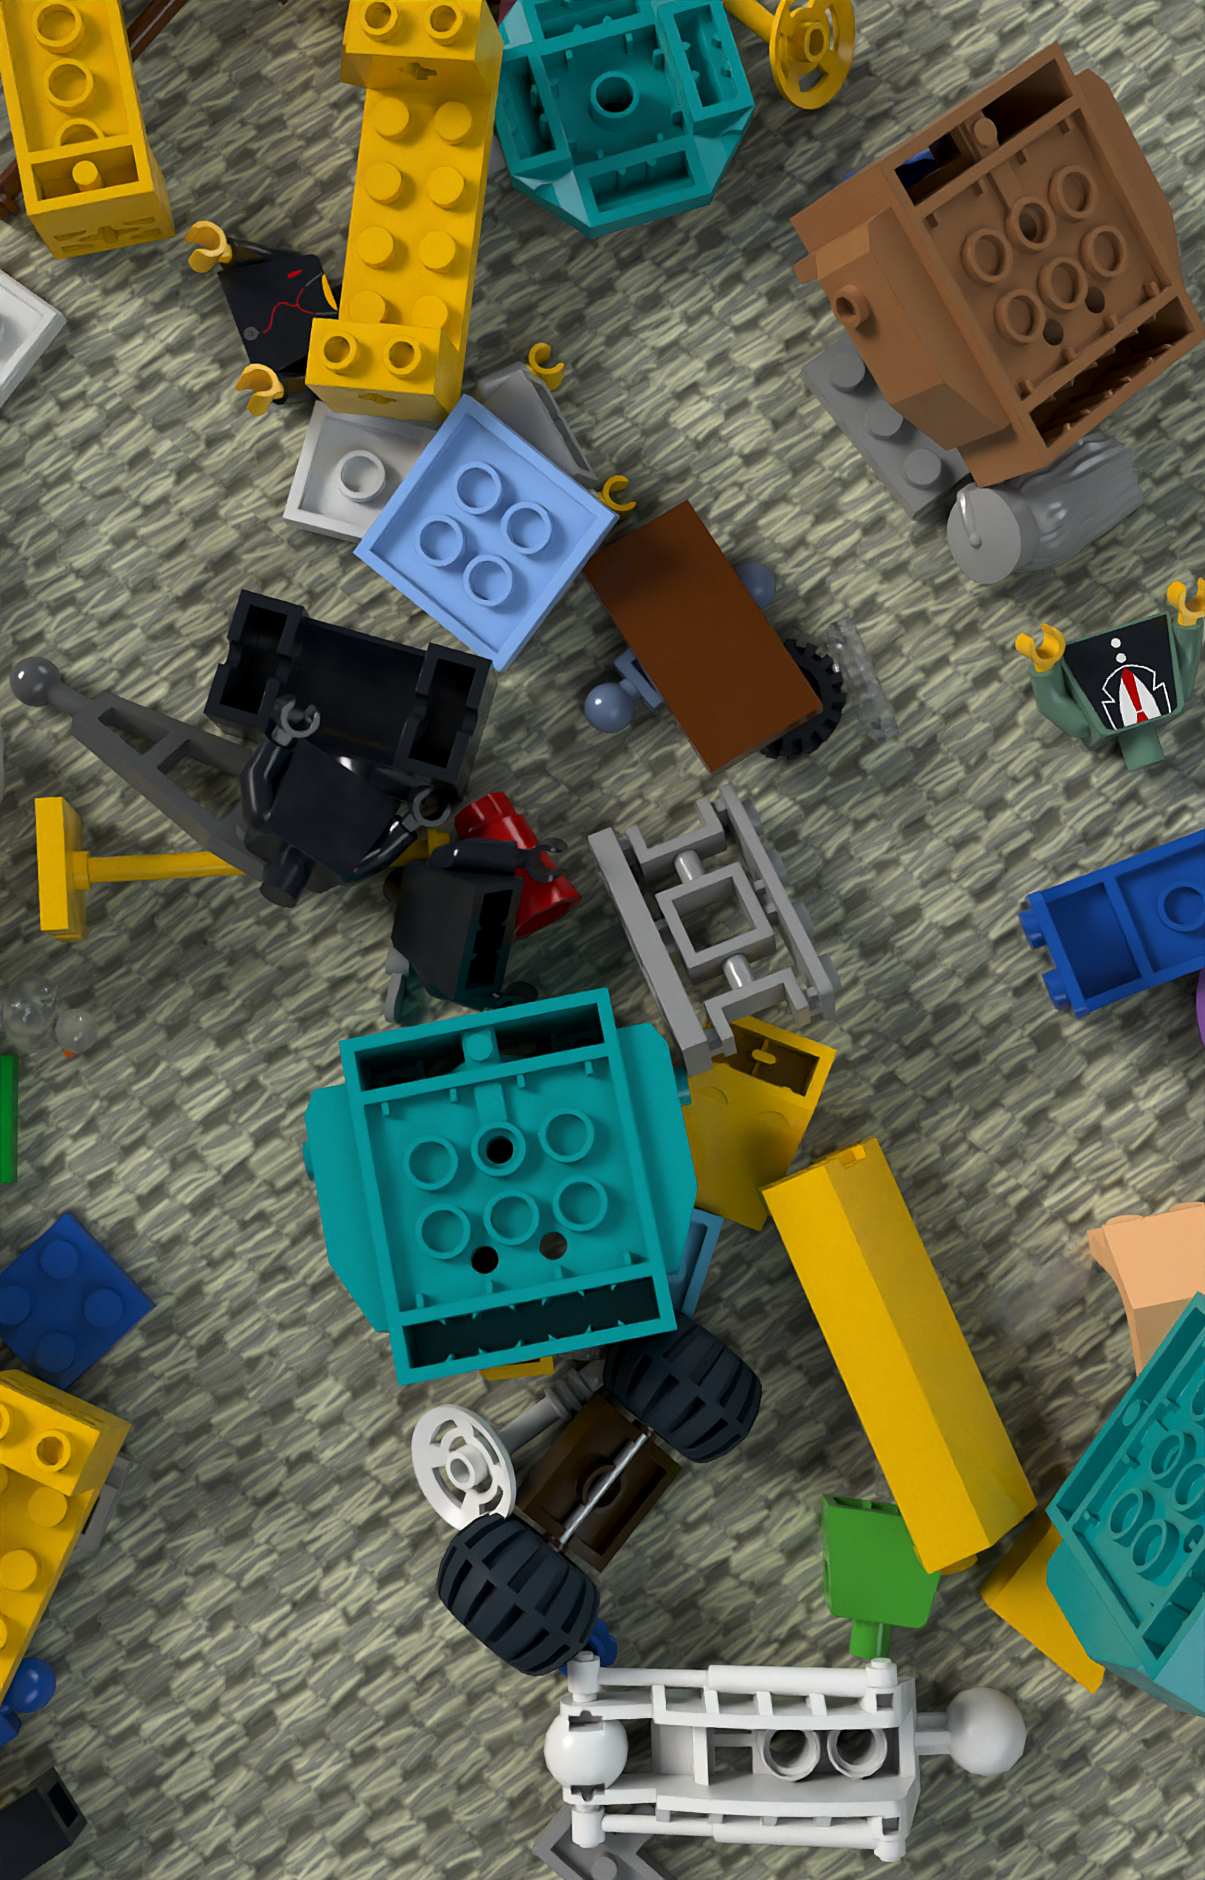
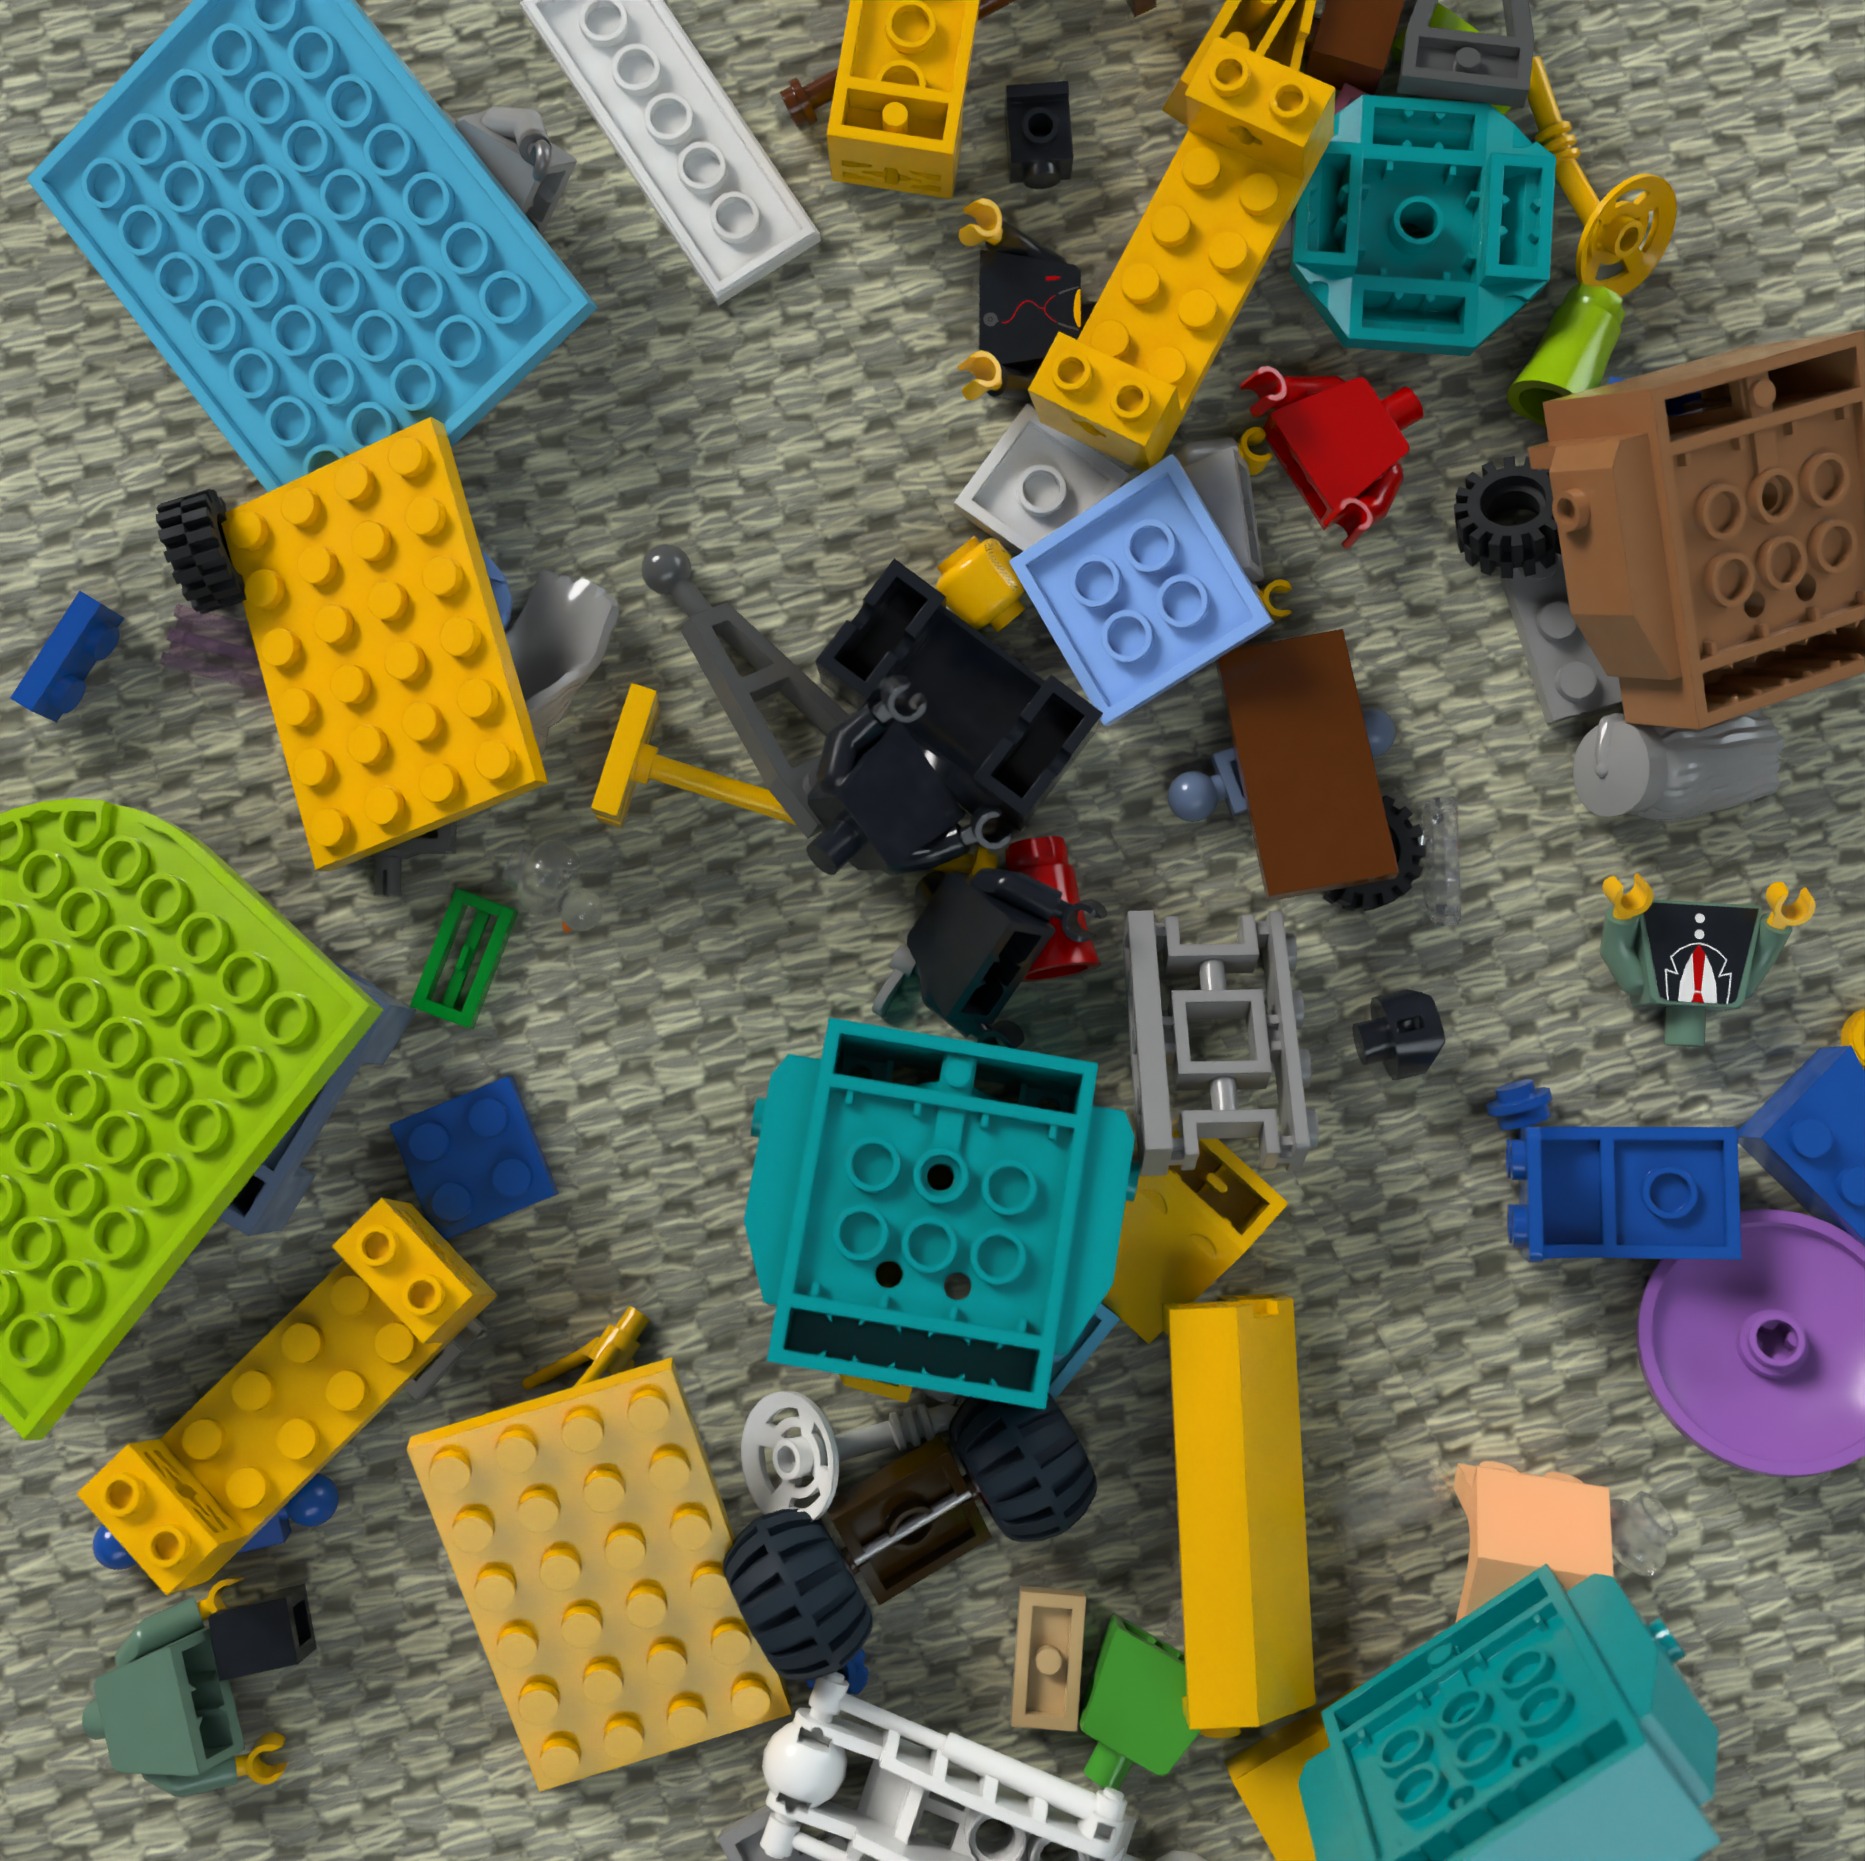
camera: 25 degrees right, 0 degrees up
(233, 145) = (1038, 111): none -> black brick
(259, 1436) = (608, 1352): none -> yellow plant
(320, 1646) = (598, 1573): none -> yellow plate
(336, 584) = (981, 584): none -> yellow head
(618, 329) = (1337, 443): none -> red torso
(777, 1560) = (1048, 1658): none -> tan plate
(802, 164) = (1571, 351): none -> lime plant
(806, 366) = (1500, 544): none -> black tyre
(883, 854) = (1402, 1033): none -> black piece
(1017, 878) = (1520, 1104): none -> blue plate

